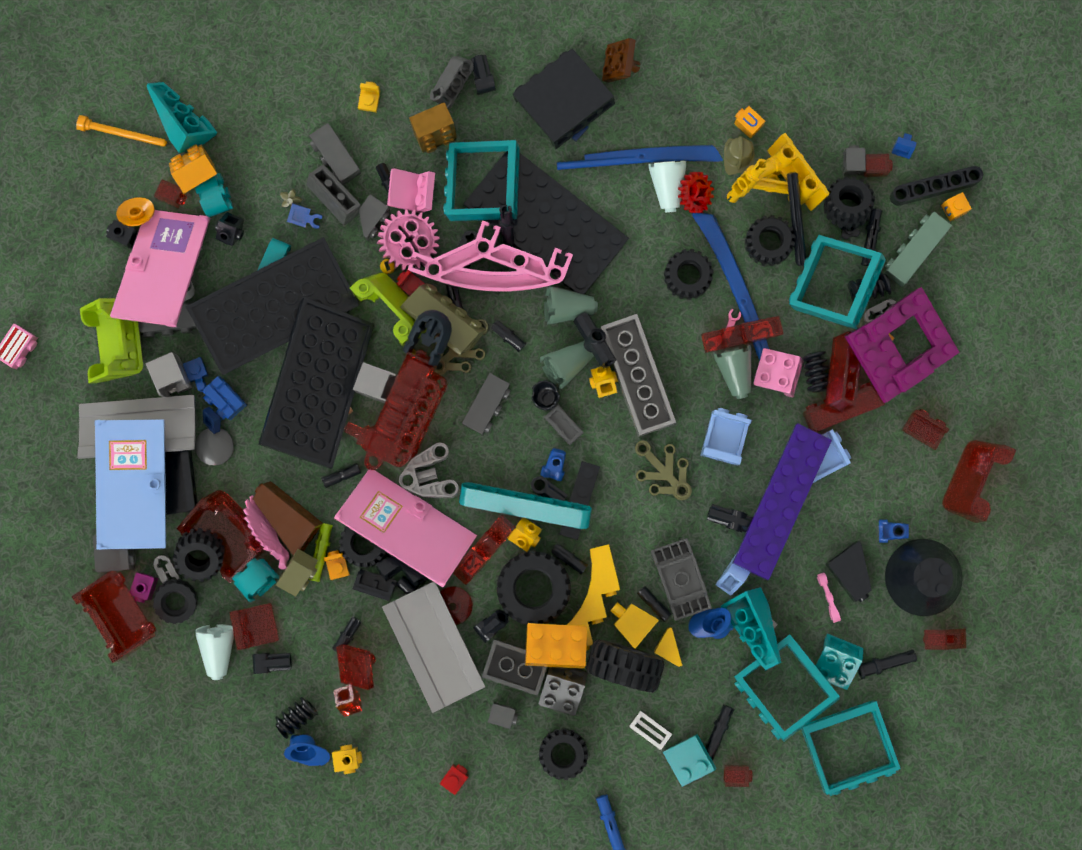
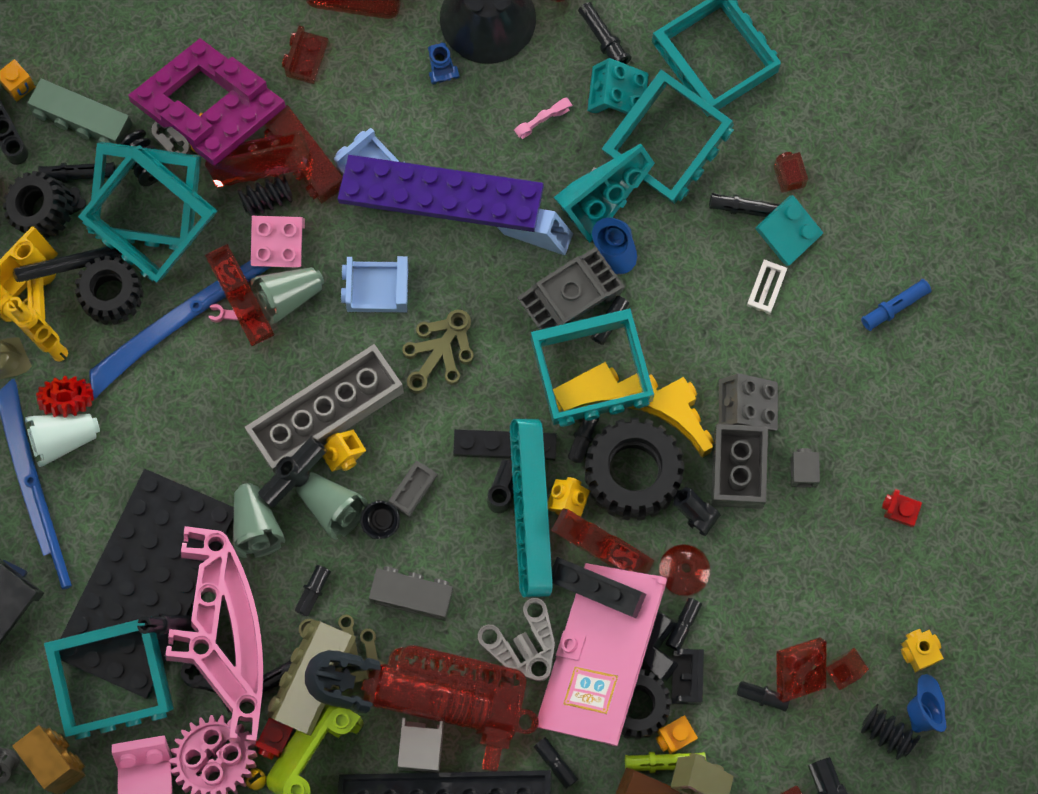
camera: 110 degrees left, 10 degrees down
(433, 647) = (744, 576): light grey hinge -> none
(452, 536) = (597, 587): none -> black plate
(554, 469) = (468, 486): blue plate -> none
(556, 645) = (699, 417): light orange brick -> none
(575, 766) = (824, 400): black tyre -> none
(625, 666) = (699, 326): black tyre -> none
(633, 623) = (651, 334): yellow torso -> none
(647, 578) = (585, 328): none -> teal window
(668, 648) = (658, 289): yellow slope -> none
(688, 258) = (167, 362): black tyre -> none
(730, 518) = (478, 253): black piece -> none
(833, 303) = (174, 184): none -> teal window
(851, 572) = (504, 98): black slope -> none

